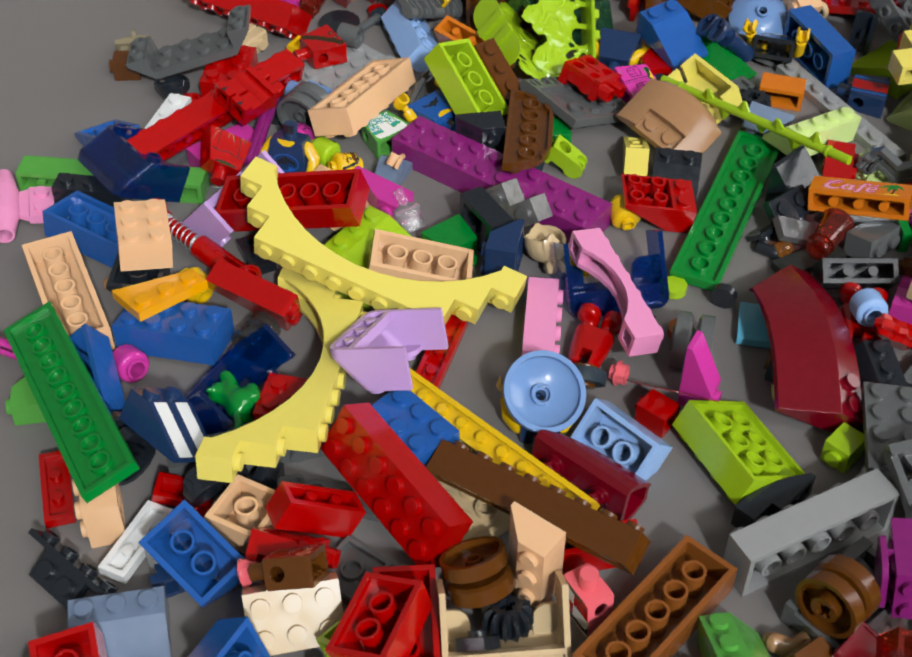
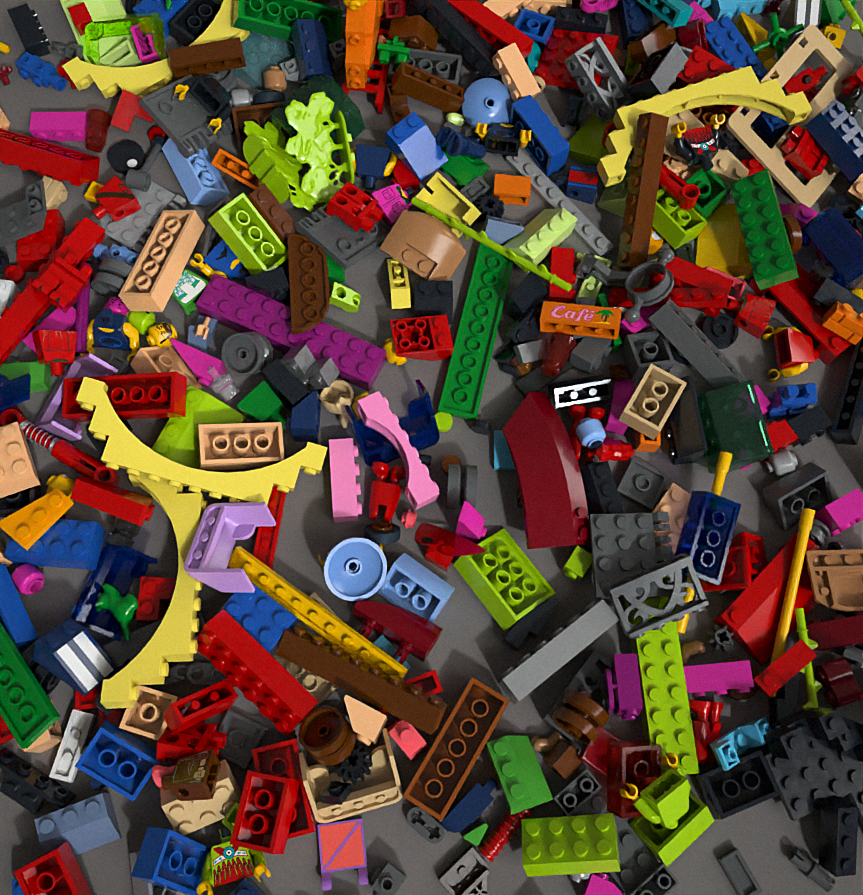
camera: 15 degrees left, 25 degrees up
(440, 185) = (246, 353): none -> dark grey wheel

